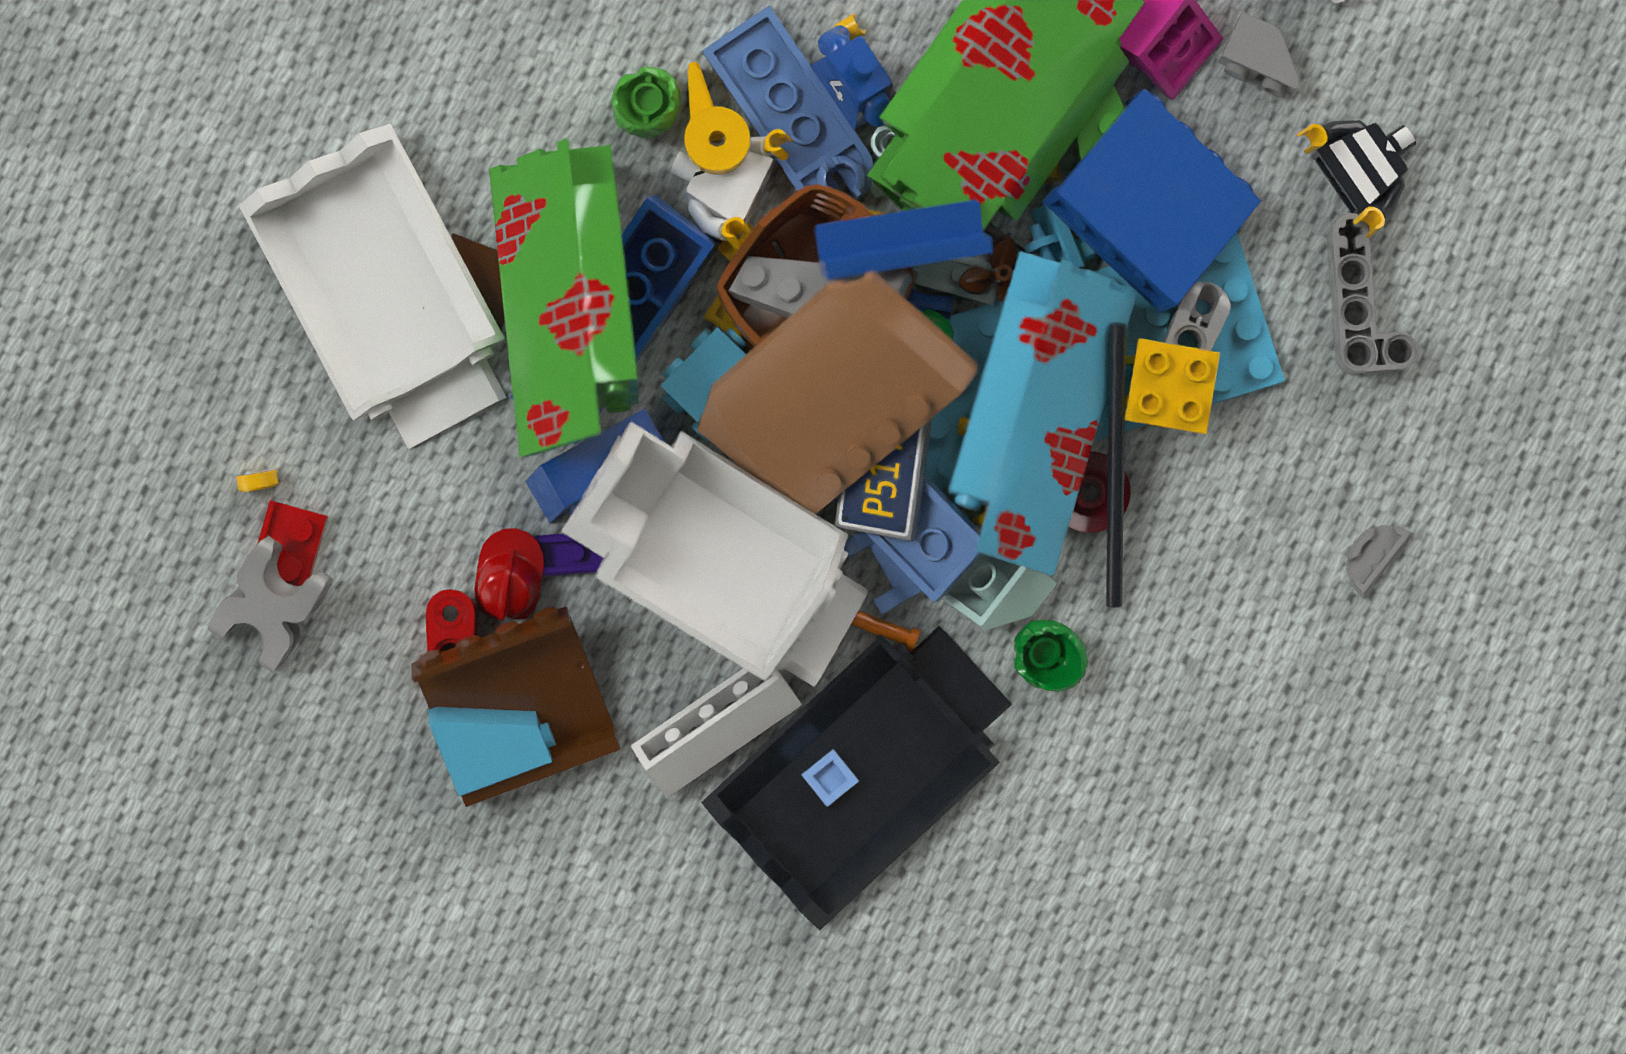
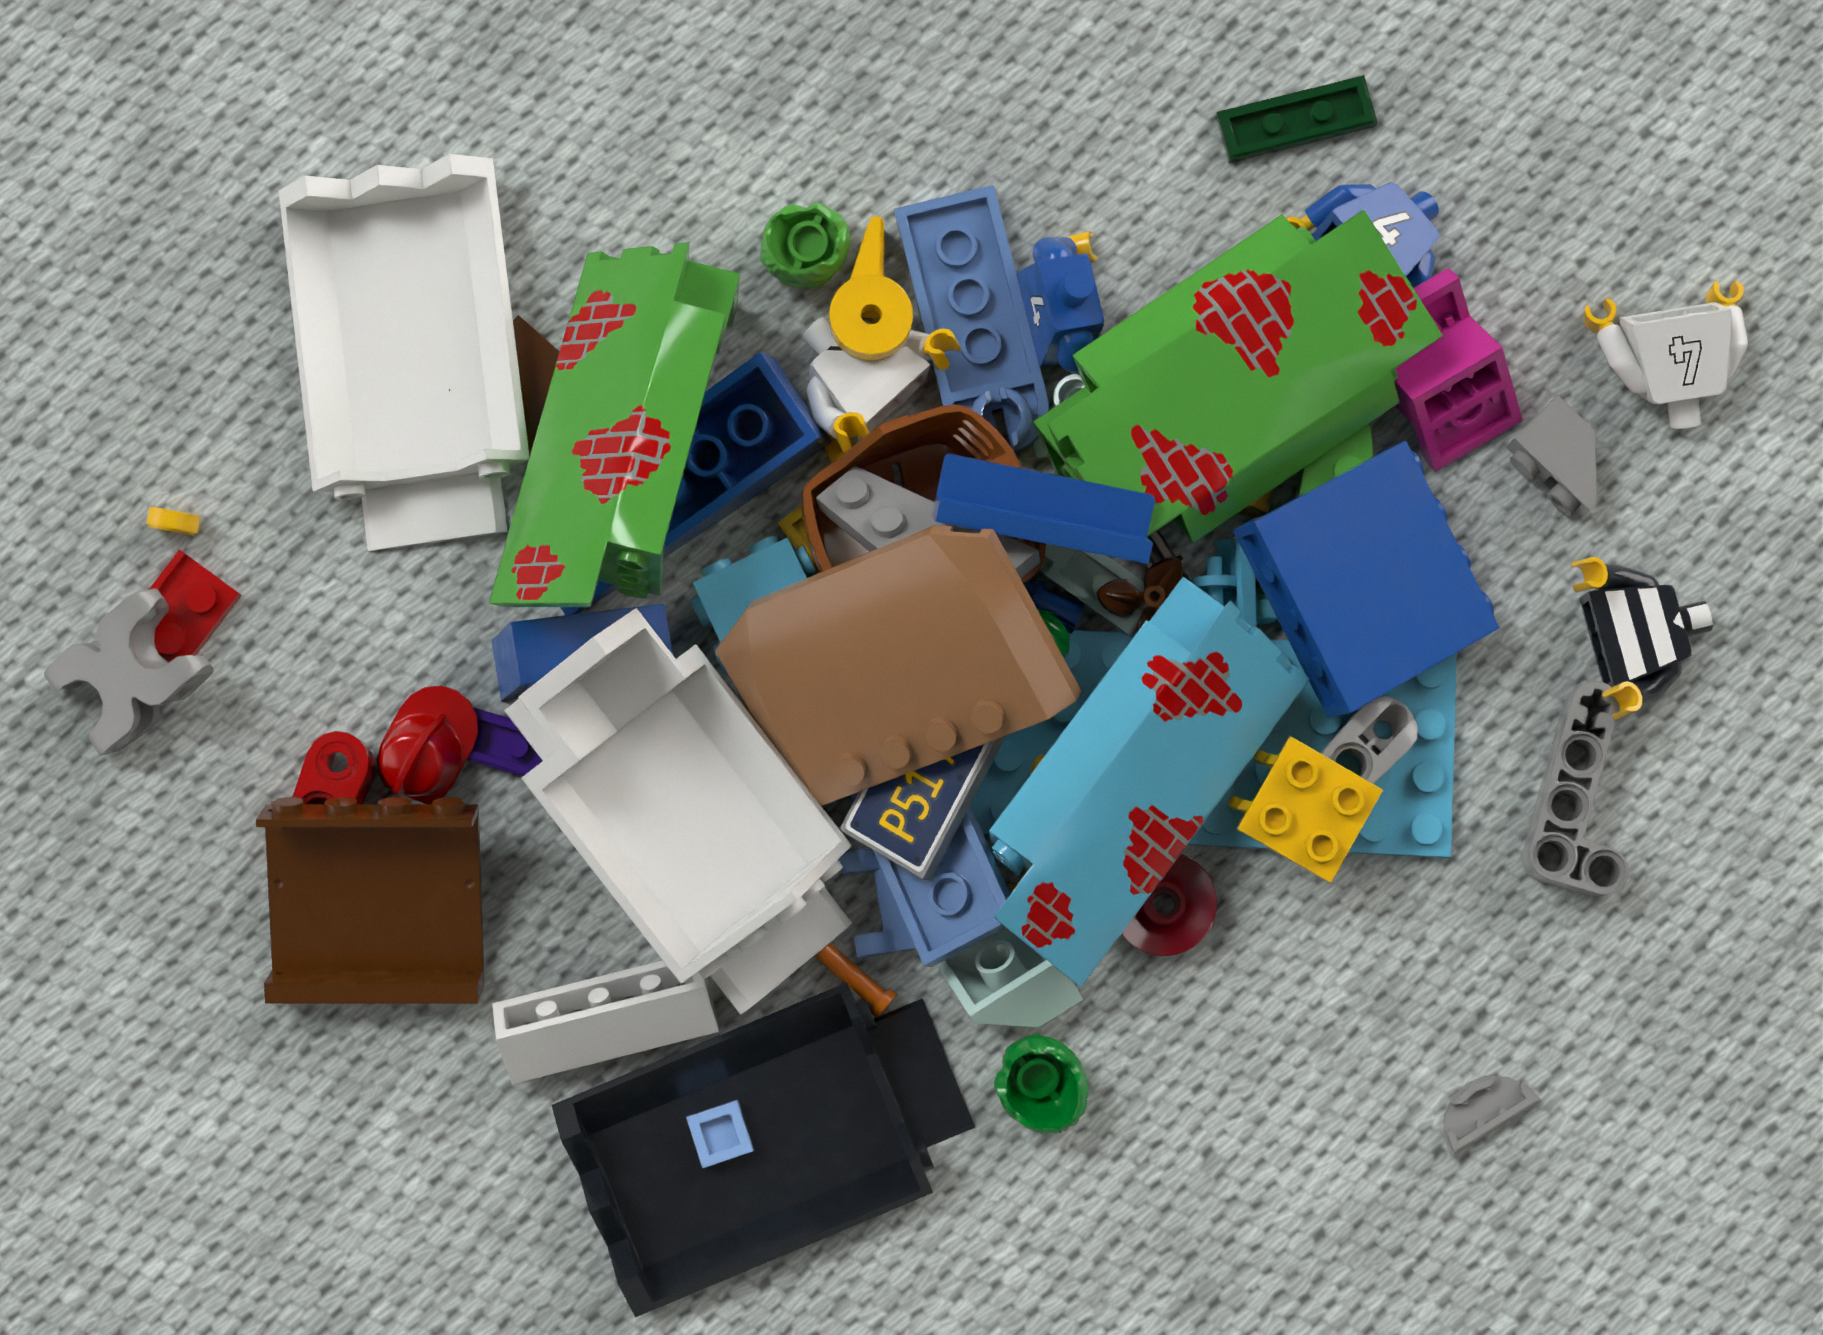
camera: 25 degrees right, 5 degrees down
(489, 744) = (321, 937): medium azure slope -> none
(1115, 481) = (1207, 880): black piece -> none

